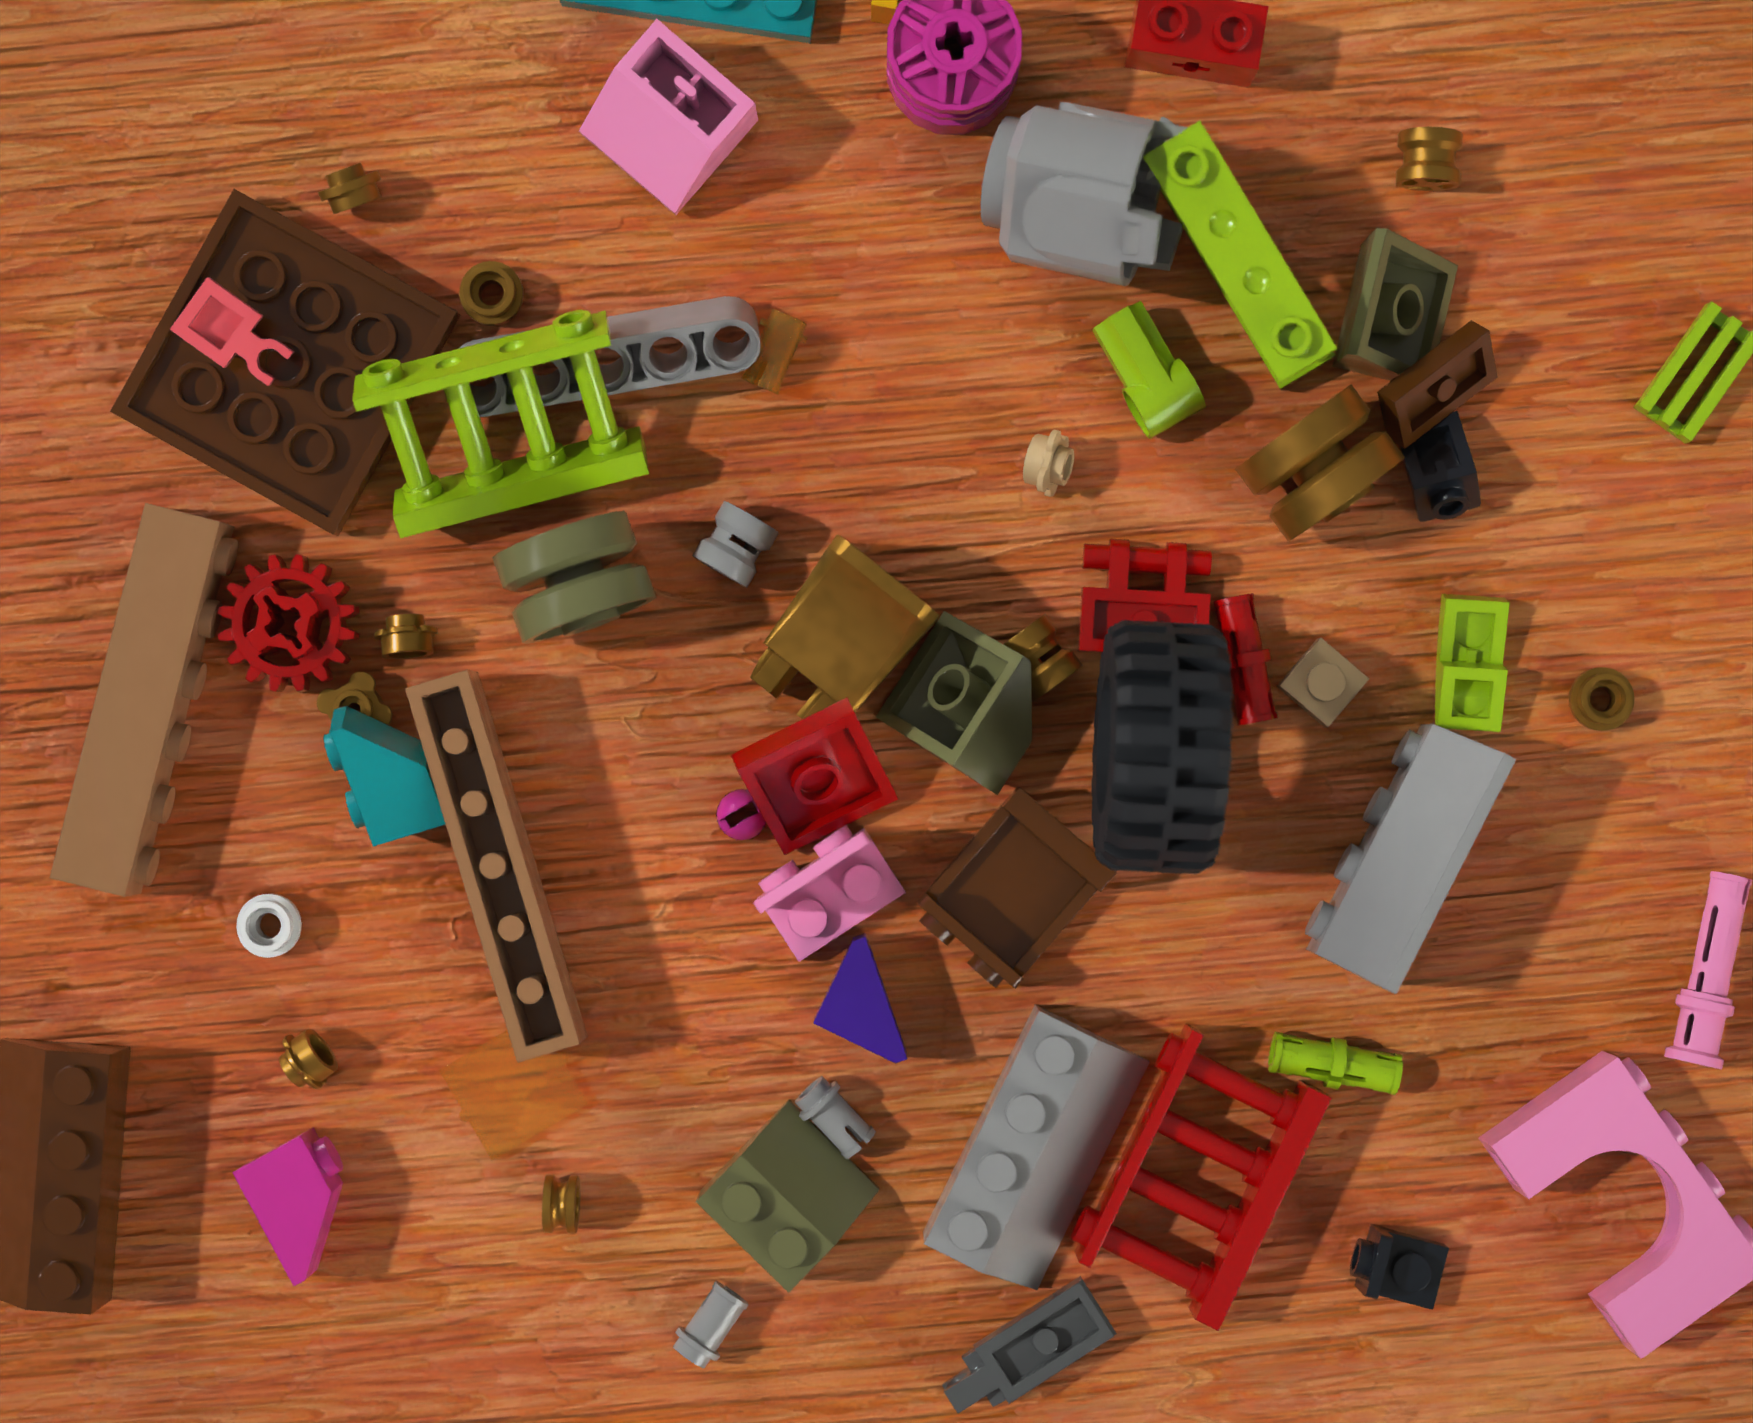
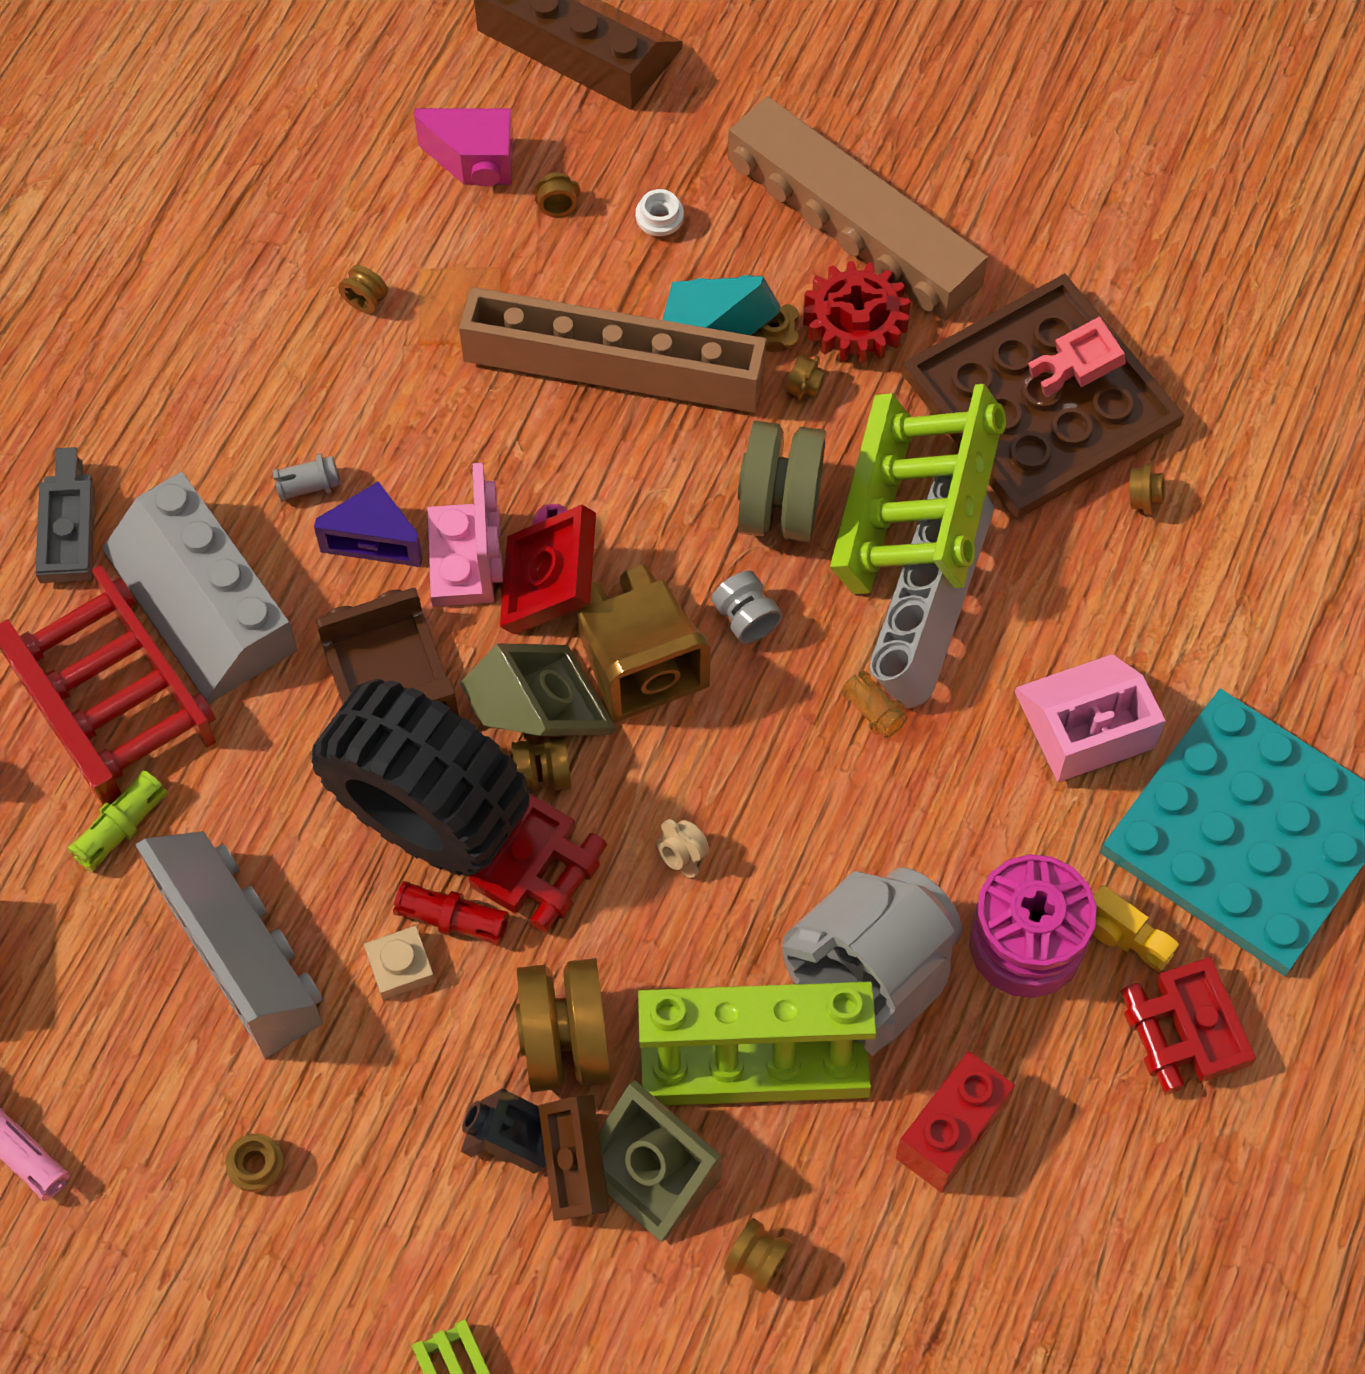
camera: 115 degrees right, 25 degrees down
(483, 275) = (1024, 532): pearl gold plate -> none
(710, 1325) = (218, 329): light grey pin -> none
(787, 1196) = (272, 417): olive slope -> none
(1156, 385) = (694, 953): lime piece -> none
(1470, 662) = (345, 1079): lime slope -> none

